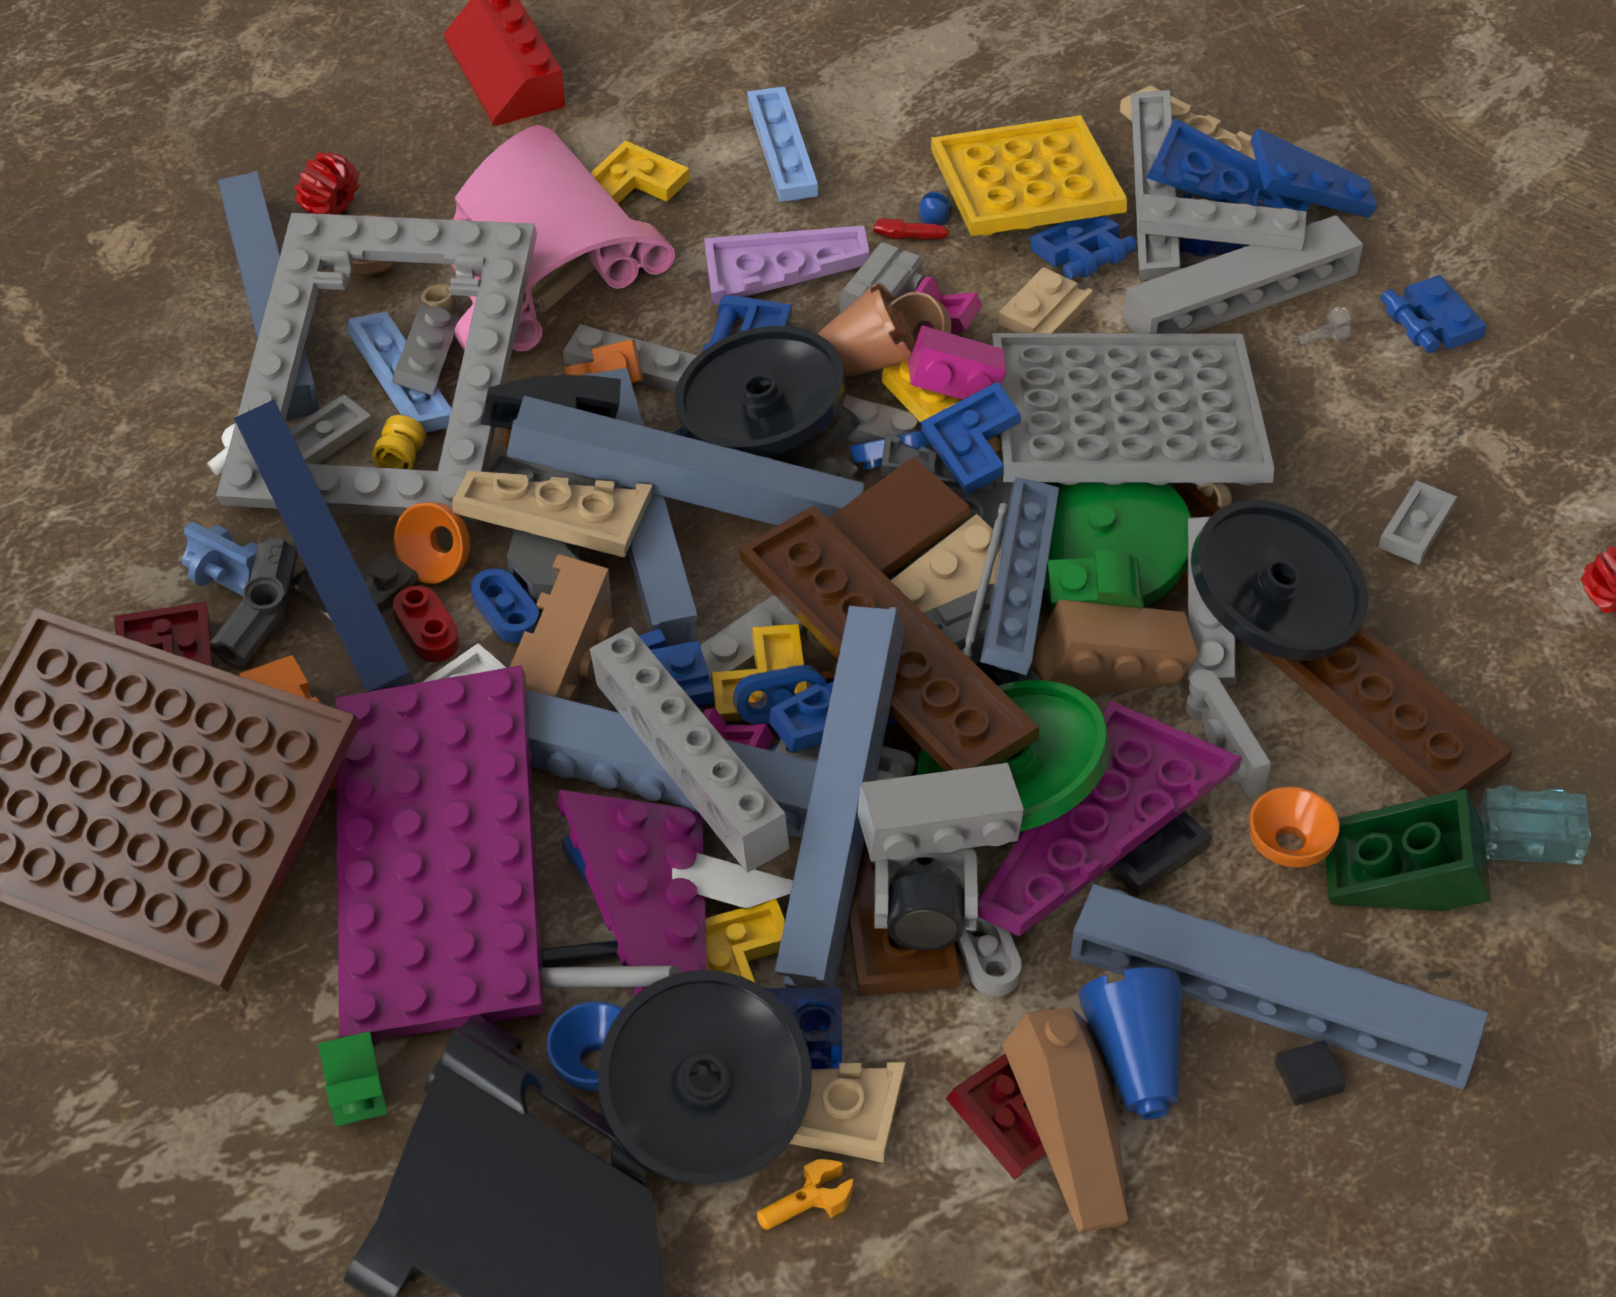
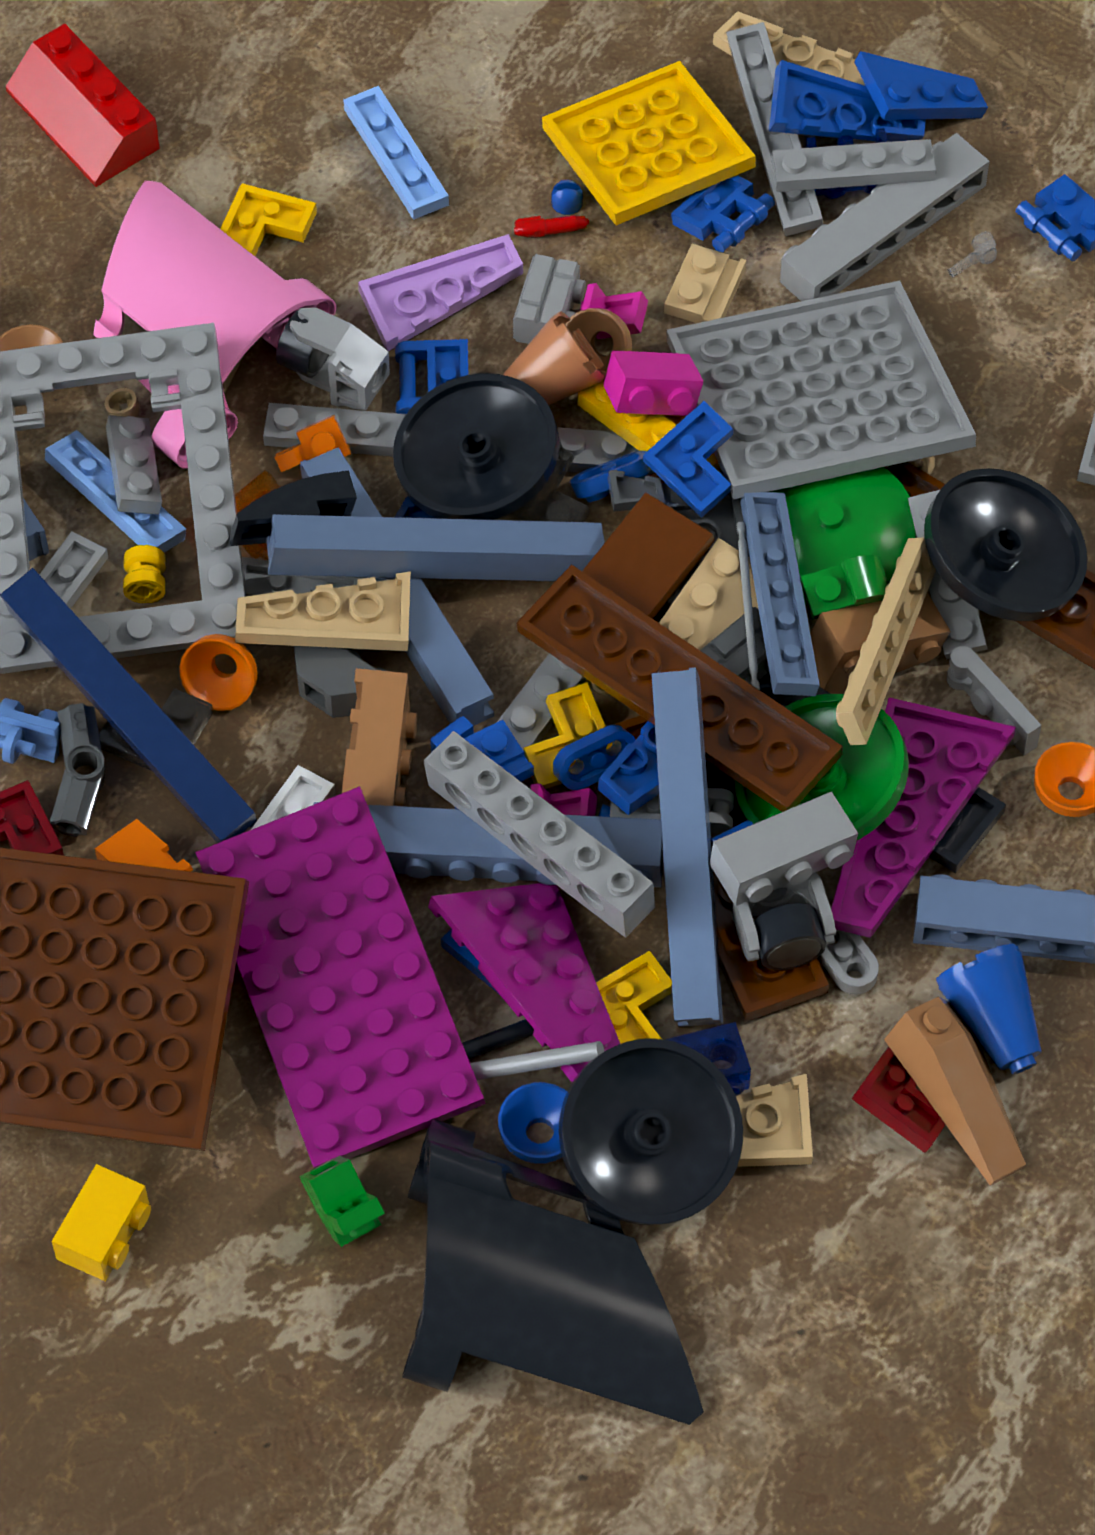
camera: 15 degrees left, 10 degrees up
(93, 1041) = (102, 1223): none -> yellow brick
(419, 617) = (234, 750): red plate -> none
(511, 610) = (309, 721): blue plate -> none
(652, 290) = (333, 357): none -> light grey piece
(731, 882) = (608, 947): white sticker -> none
(811, 1195) = (759, 1207): light orange bar -> none
(1117, 640) = (885, 642): none -> tan plate

